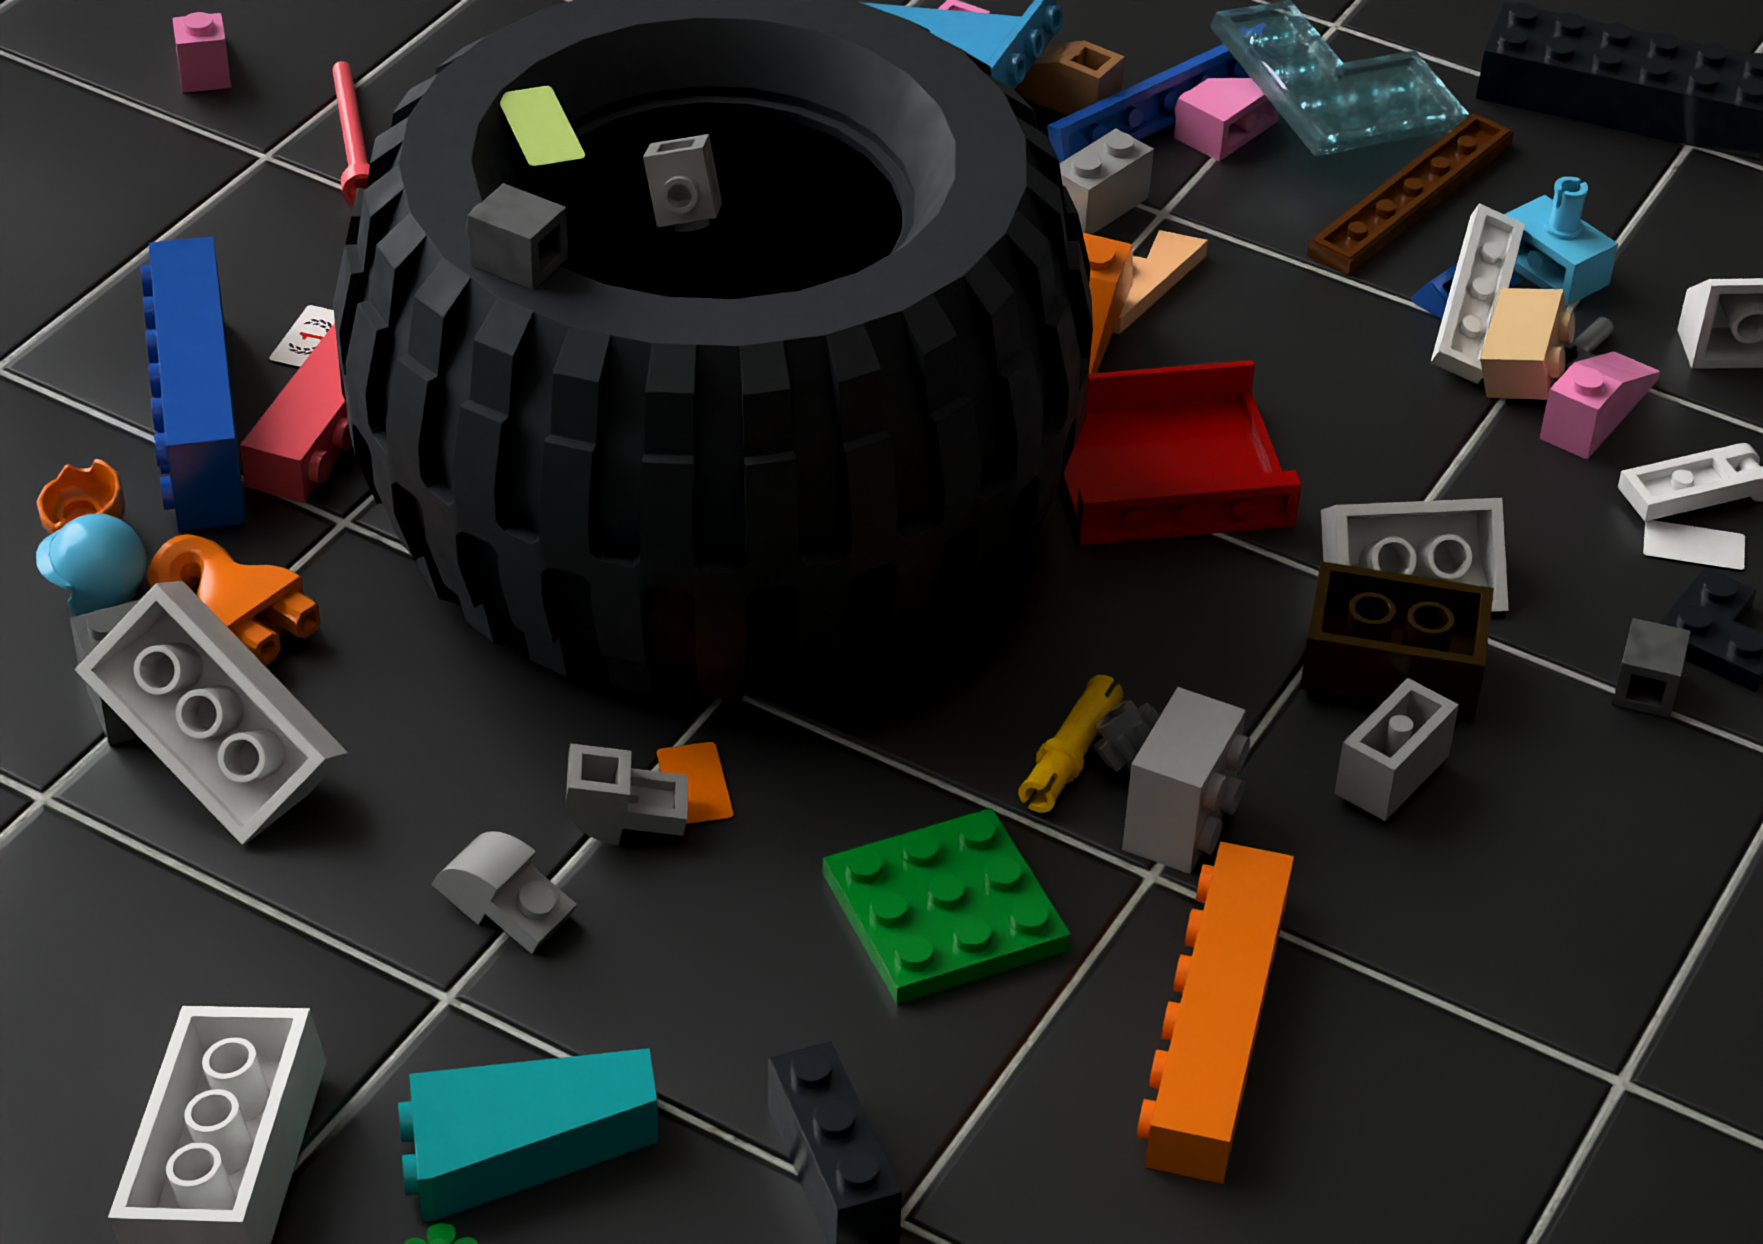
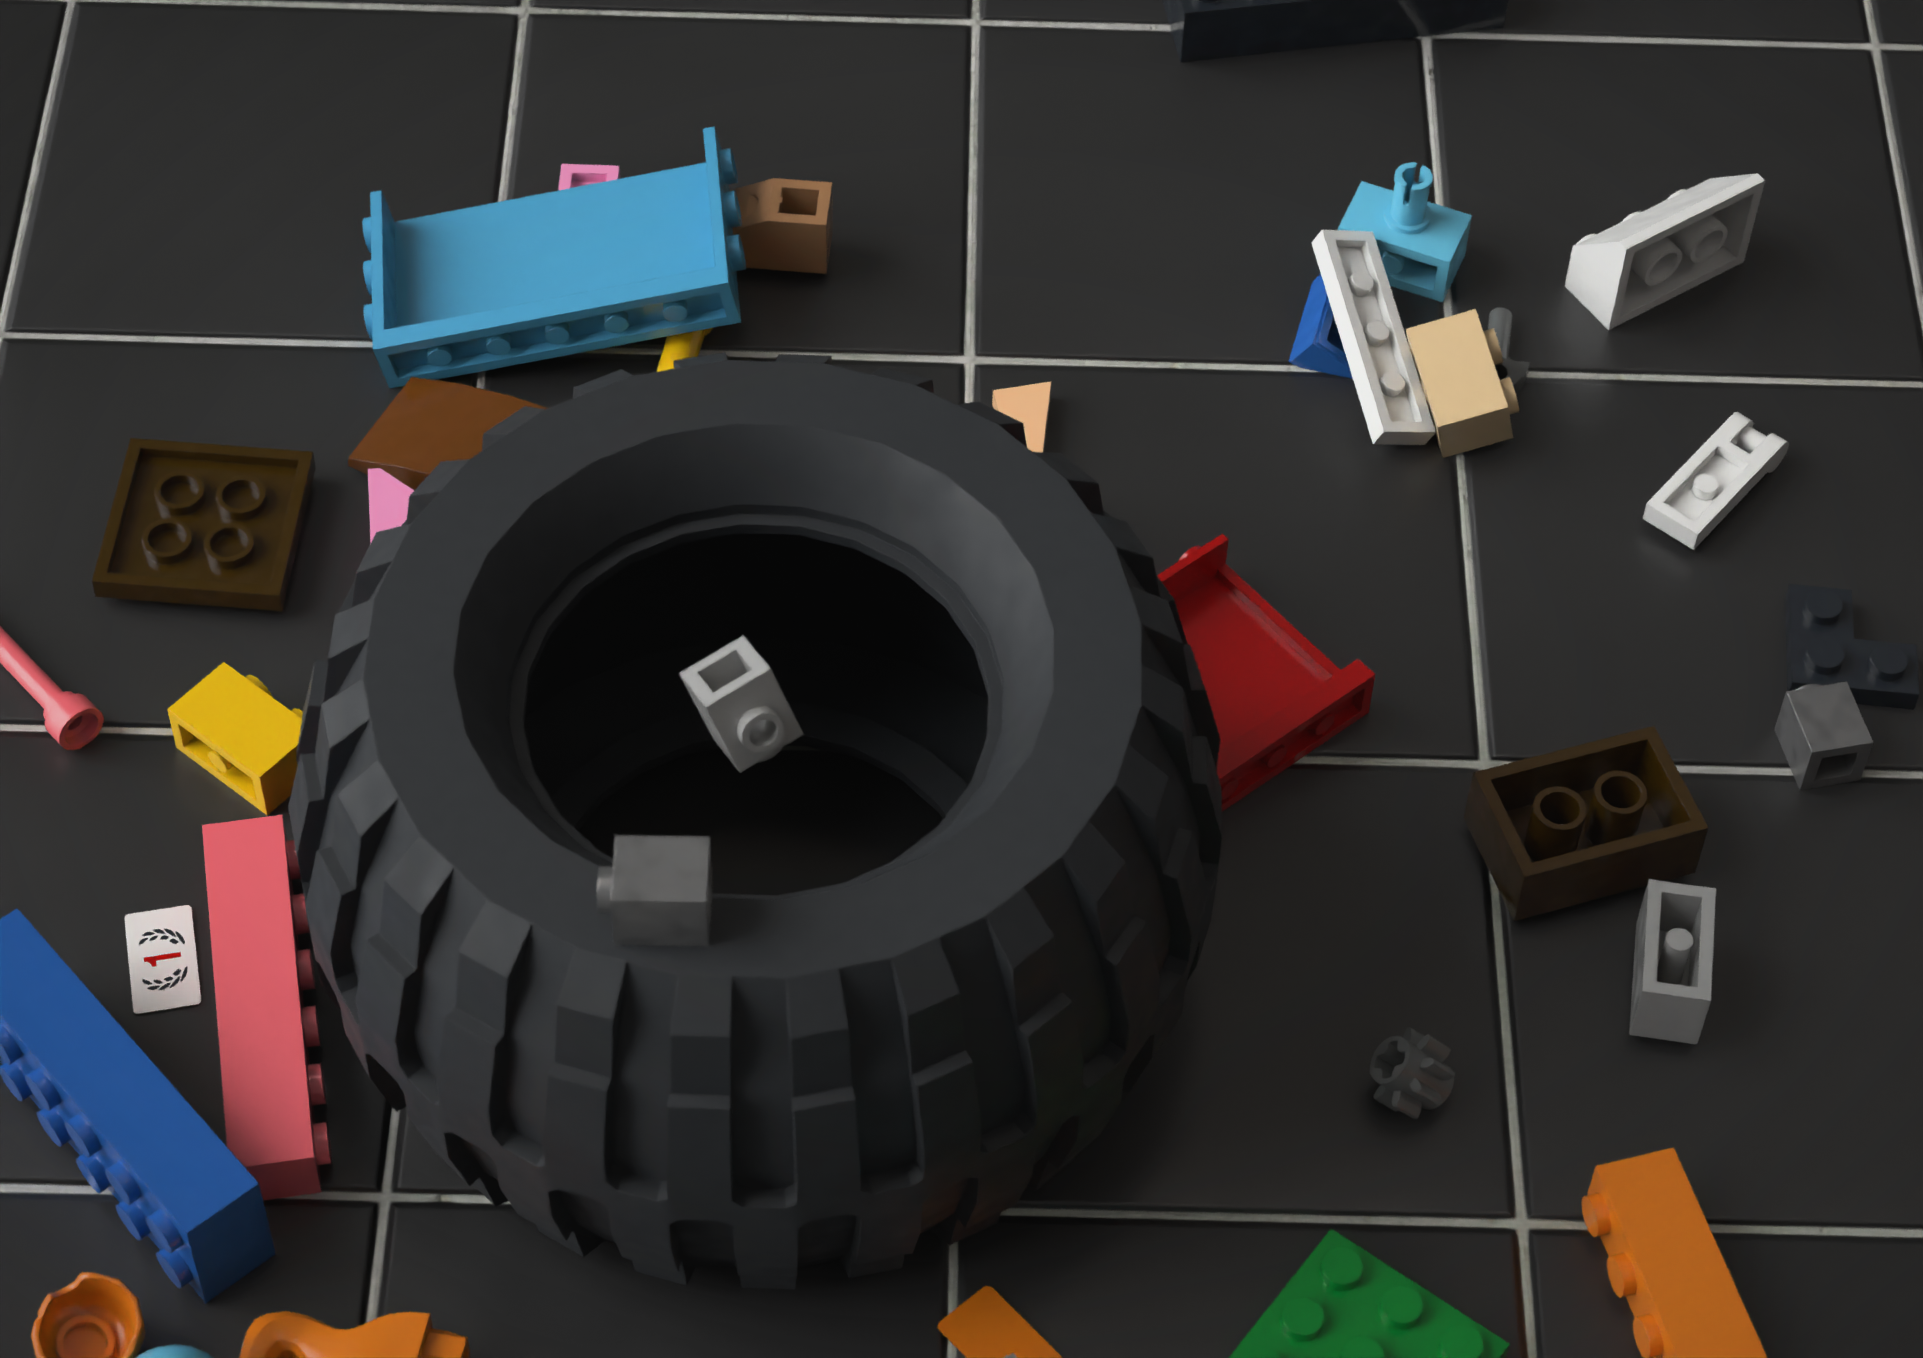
camera: 30 degrees left, 10 degrees up
(541, 126) = (523, 696): yellowish green sticker -> none
(1061, 757) = (1354, 1128): yellow pin -> none
(1108, 178) = (902, 333): light grey brick -> none
(1142, 107) = (882, 213): blue plate -> none
(1185, 780) = (1515, 1107): light grey brick -> none
(1222, 115) = (956, 202): bright pink slope -> none
(1330, 101) = (1068, 142): clear light blue plate -> none
(1409, 194) = (1204, 225): reddish brown tile -> none
(1423, 539) = (1524, 695): white slope -> none
(1593, 401) = (1560, 419): bright pink slope -> none
(1694, 544) = (1750, 554): white sticker -> none

